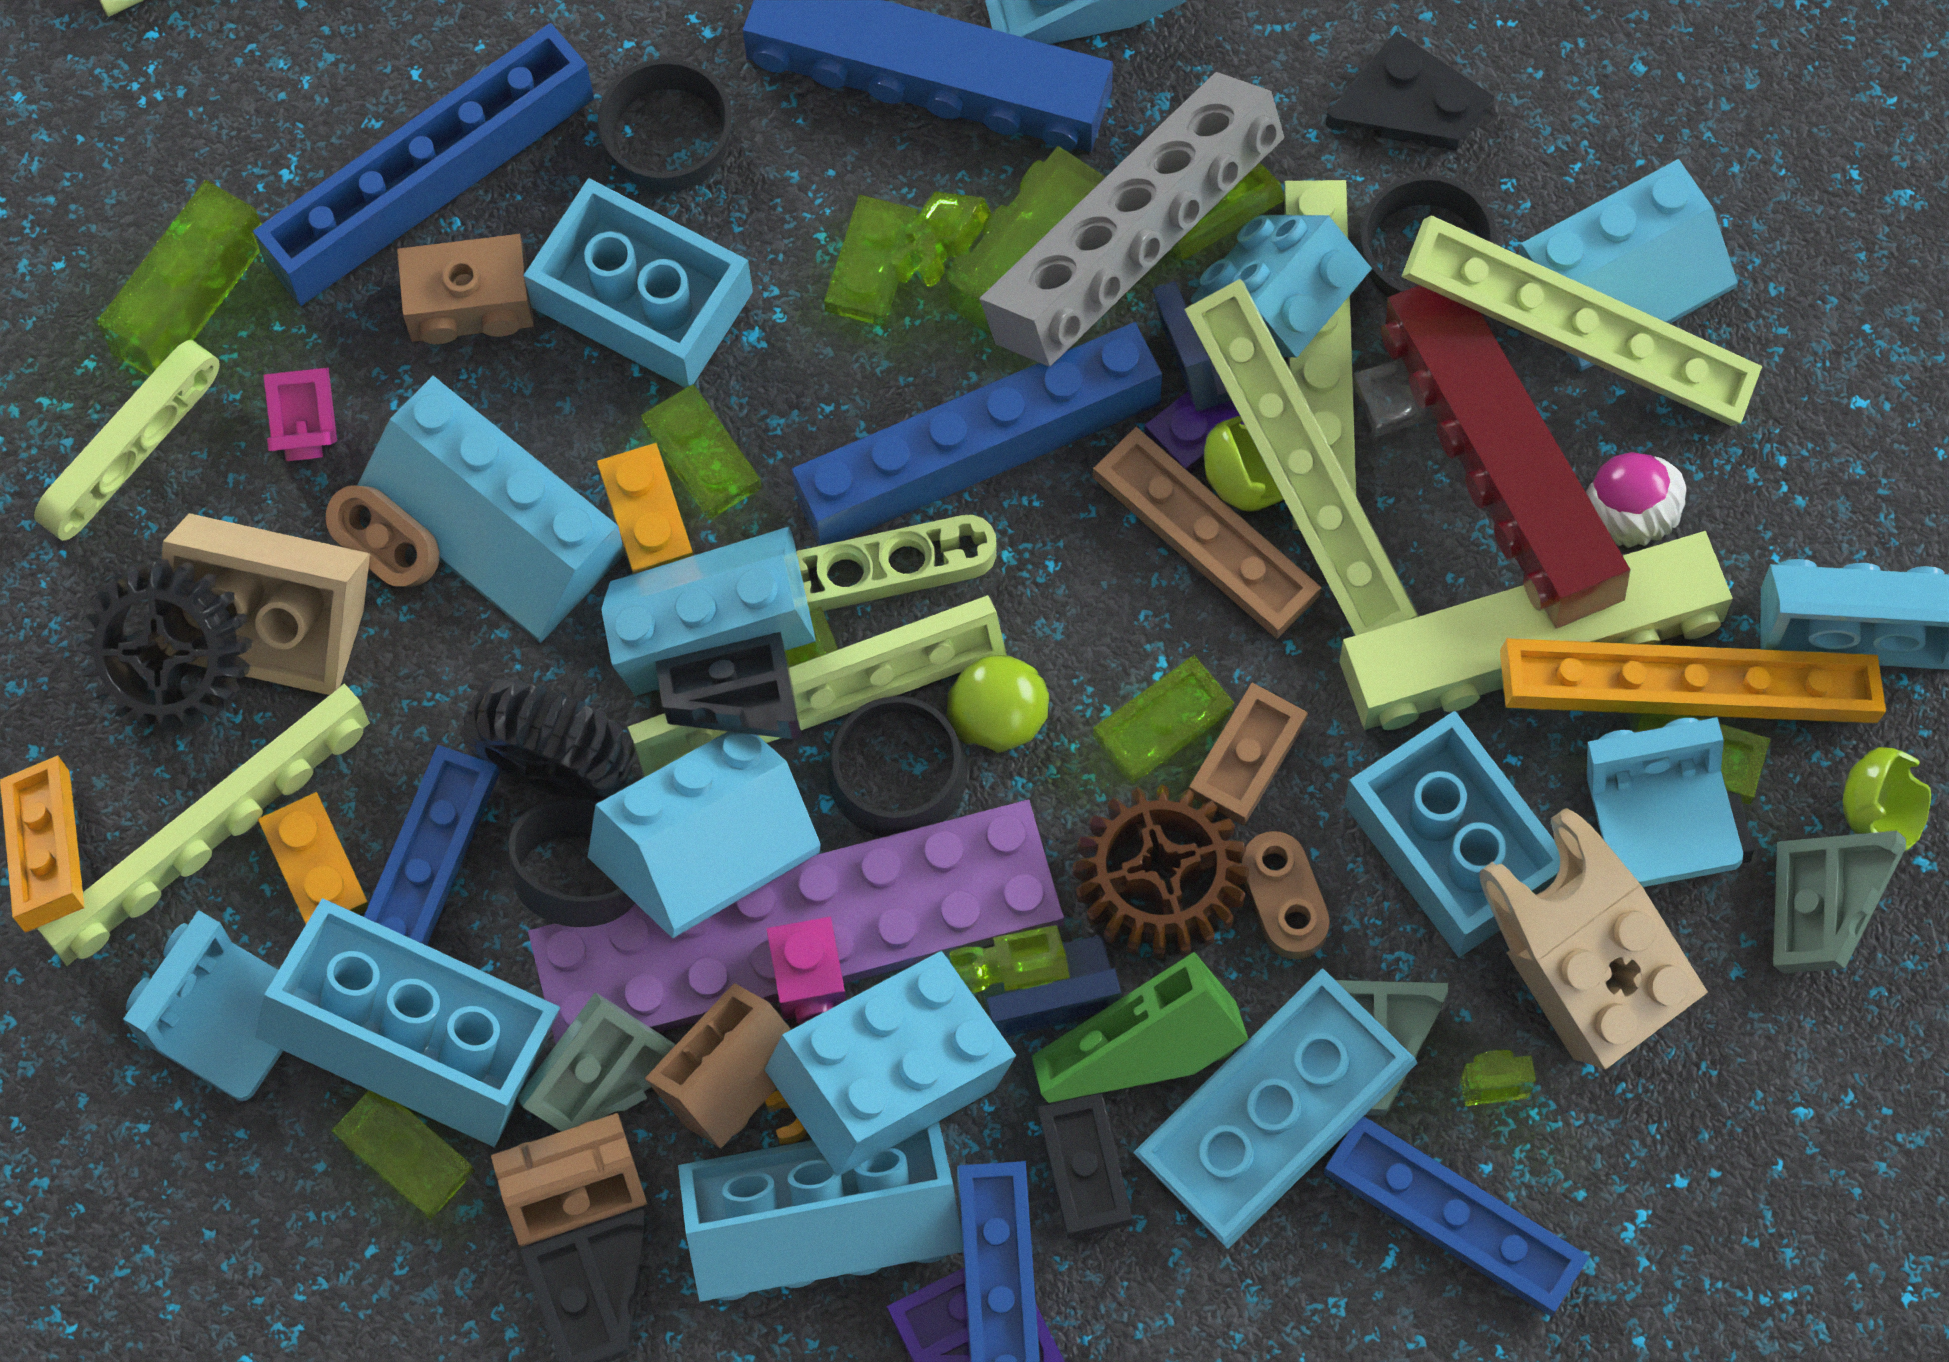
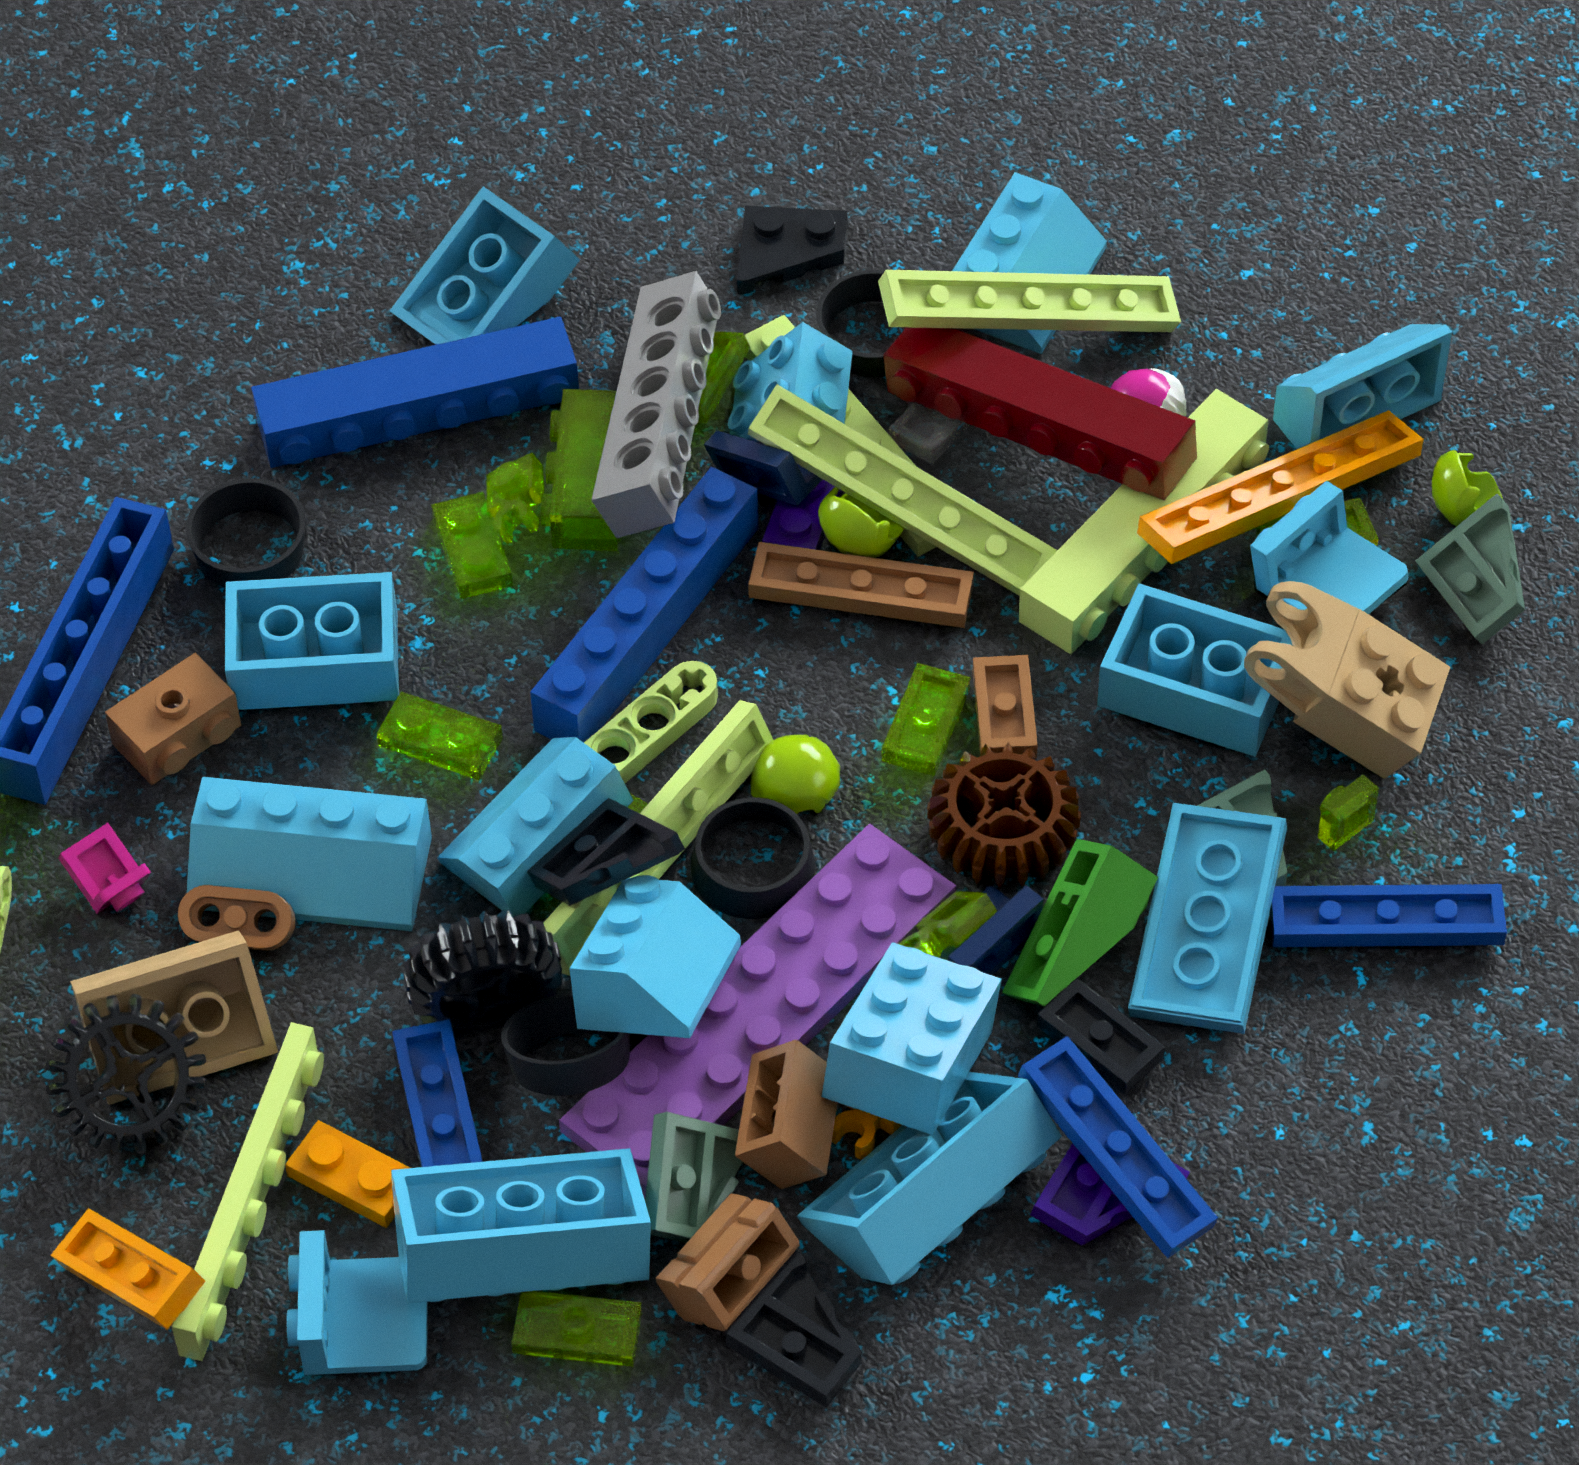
camera: 35 degrees left, 15 degrees down
(644, 508) = (449, 802): light orange plate -> none
(806, 968) = (796, 1011): dark pink bracket -> none
(1284, 892) = (1100, 782): medium nougat plate -> none

